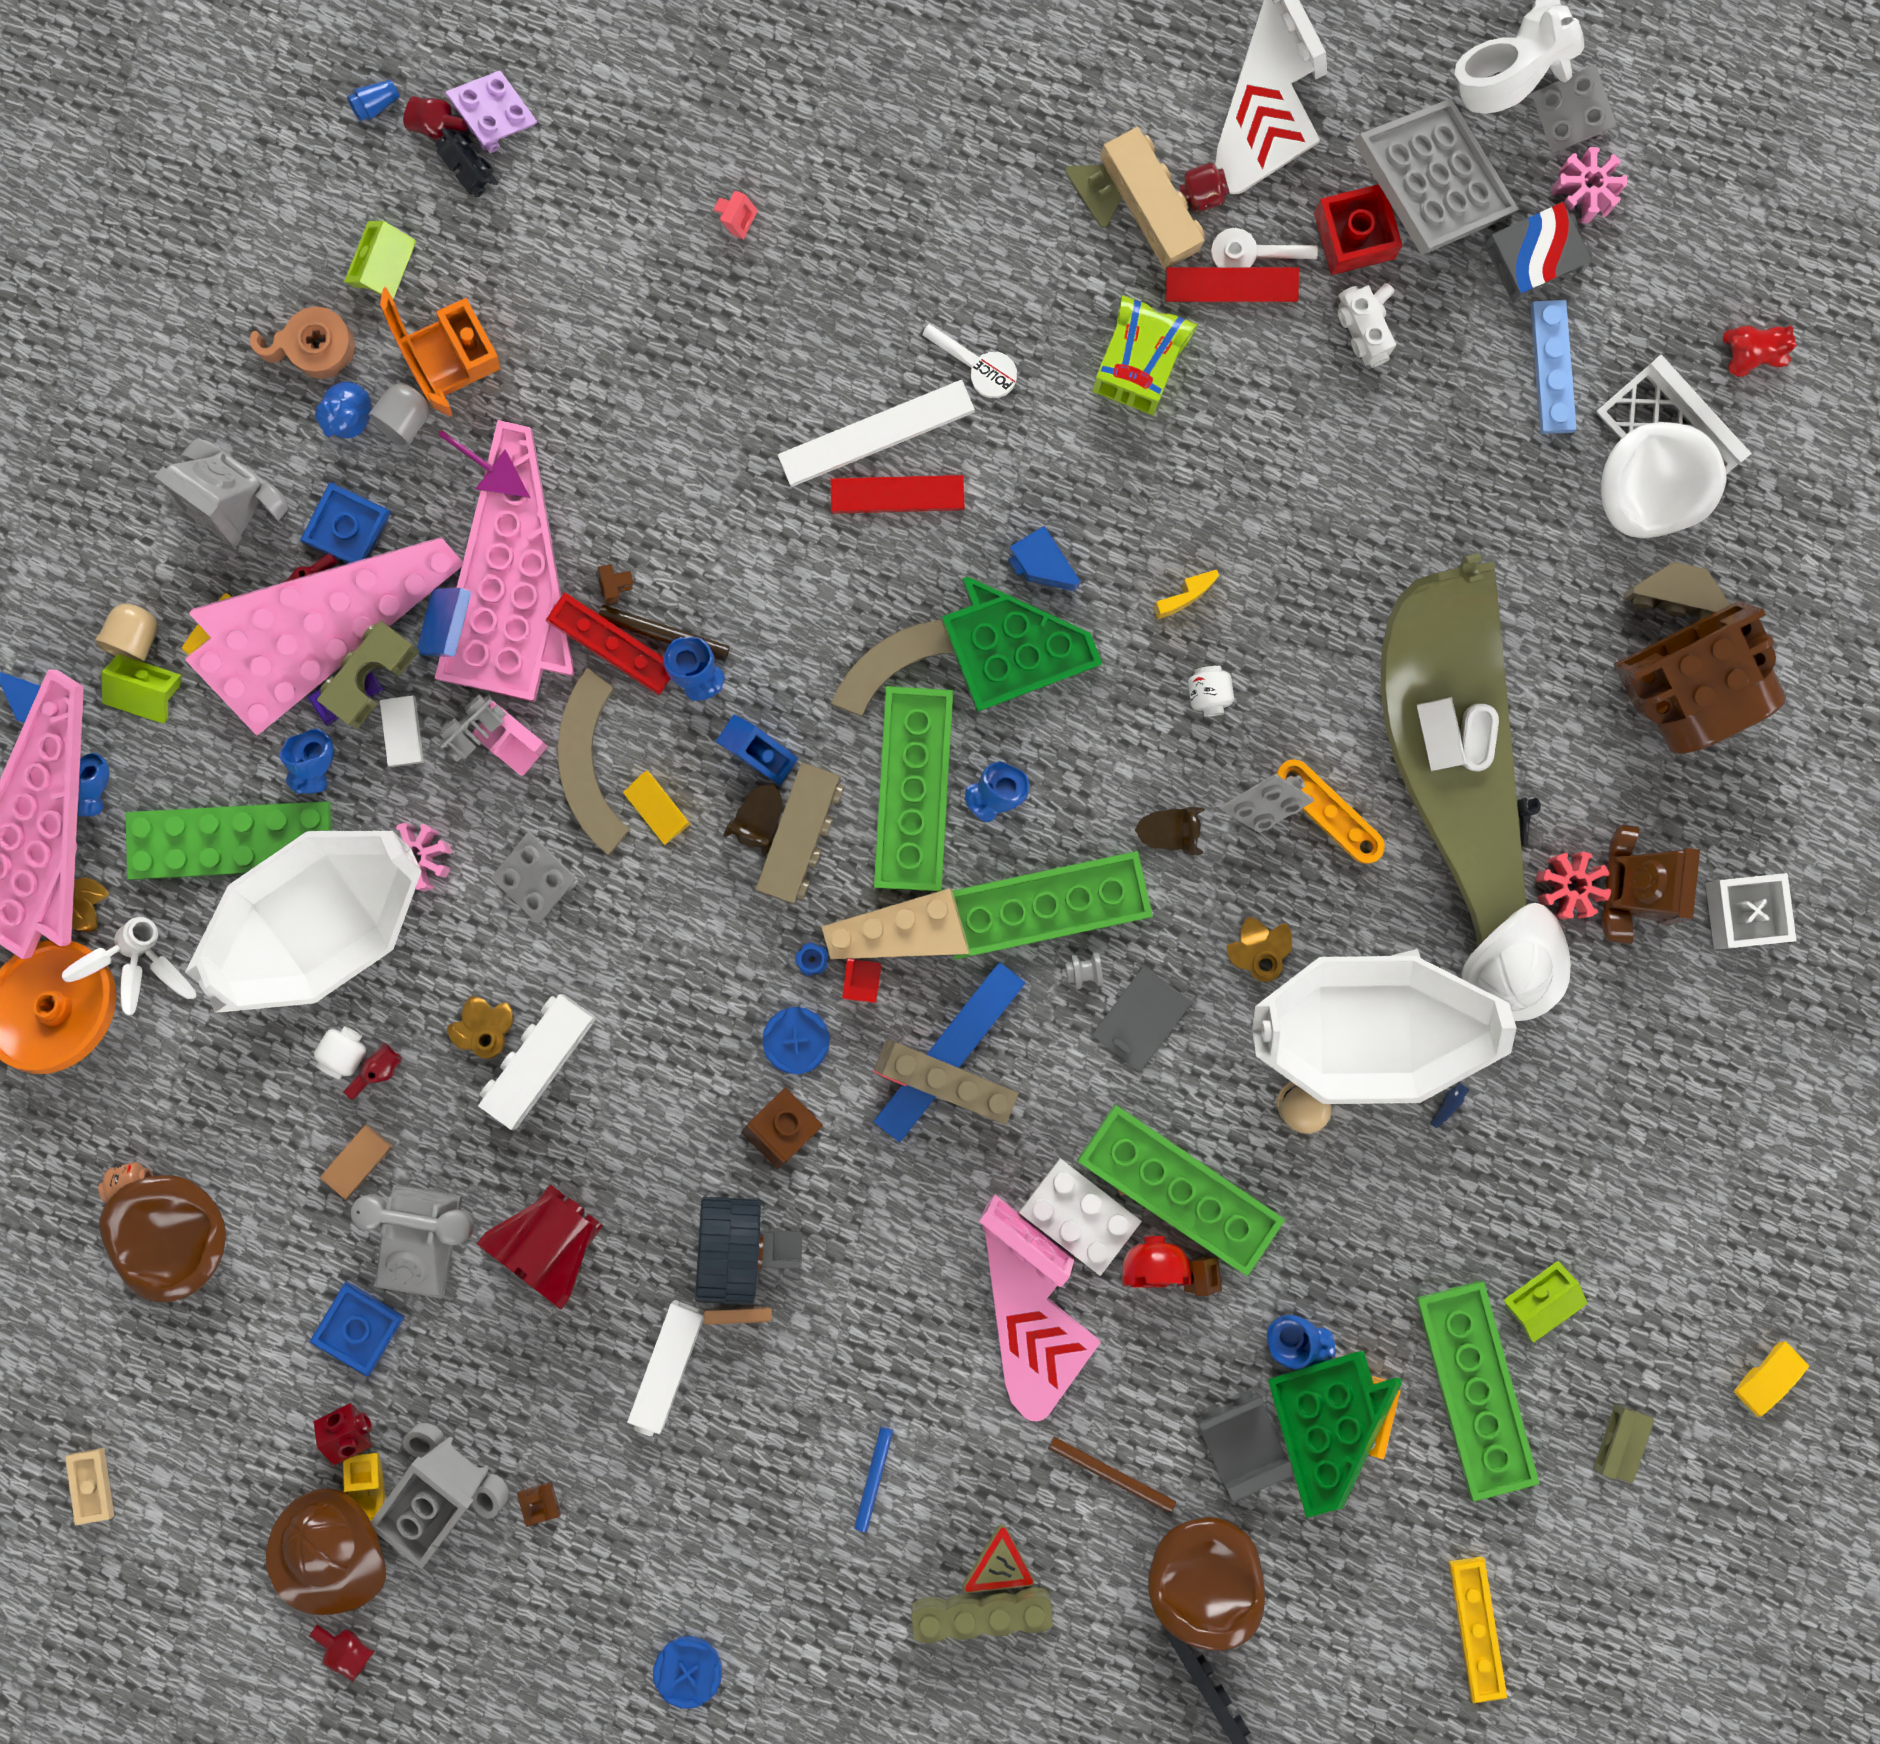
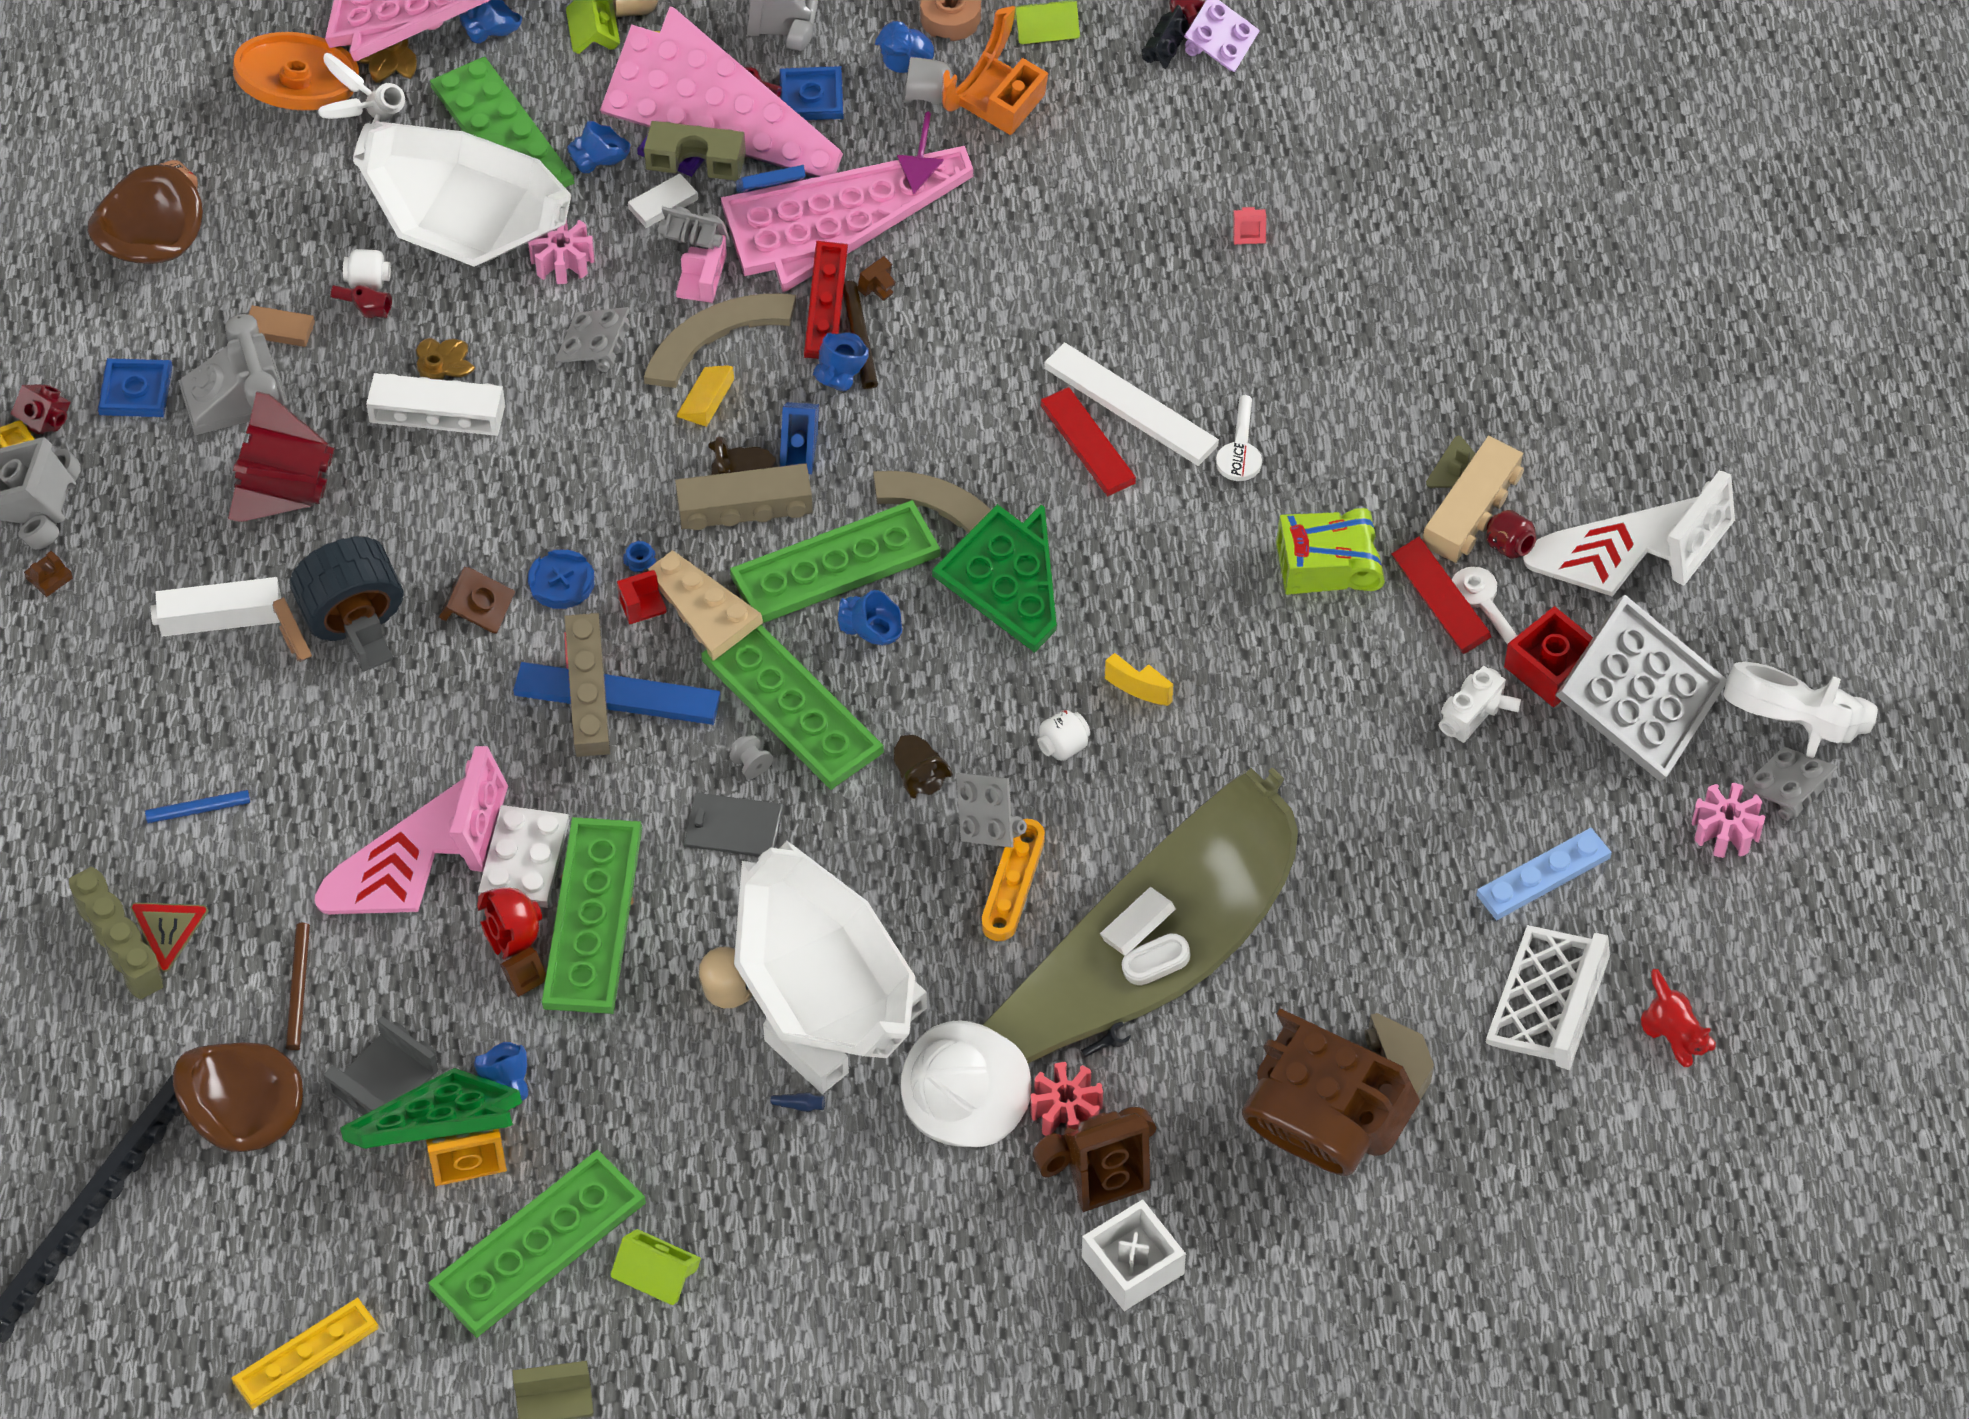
camera: 65 degrees right, 30 degrees down
(1042, 561) = (1098, 562): blue slope -> none
(1261, 944) = (860, 879): pearl gold plate -> none
(1538, 251) = (1640, 805): panel -> none
(1662, 480) = (1485, 984): white piece -> none

